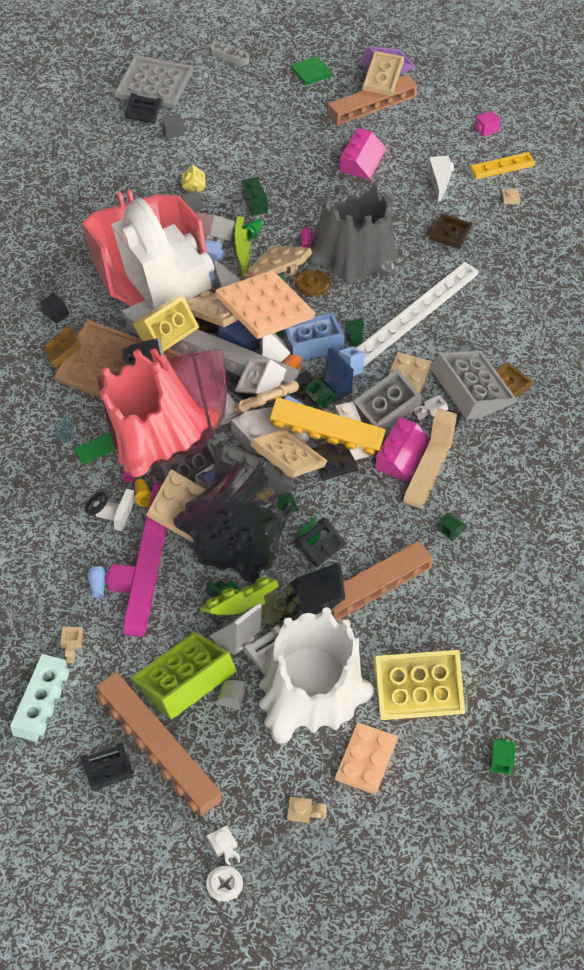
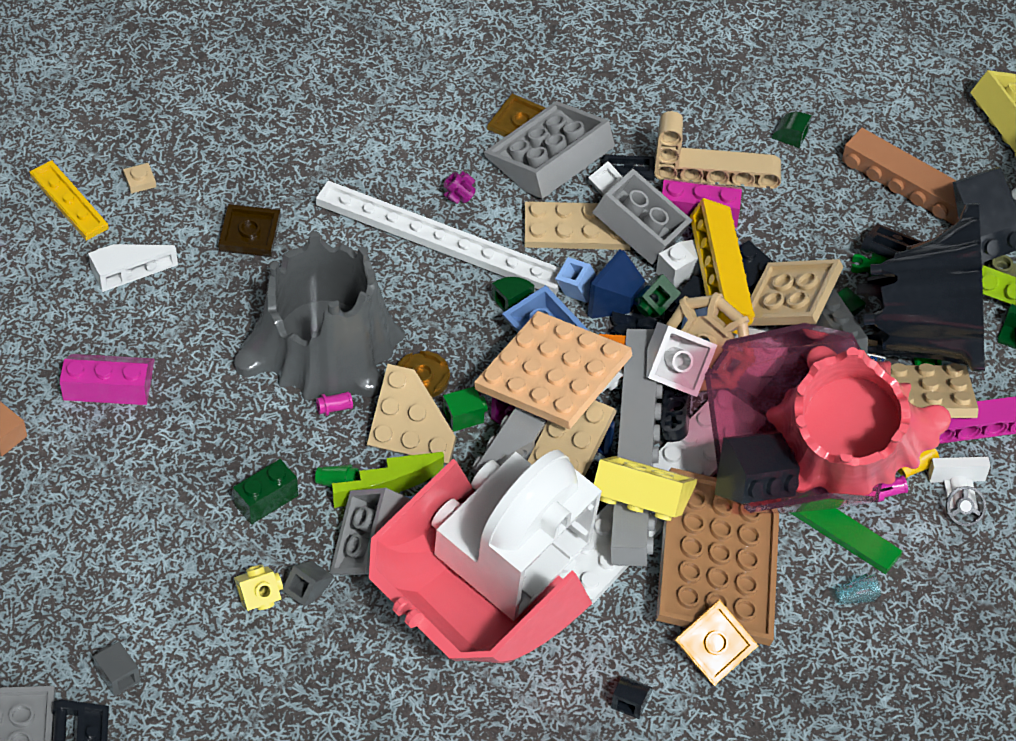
camera: 110 degrees left, 0 degrees up
(451, 329) = (459, 187): none -> magenta gear

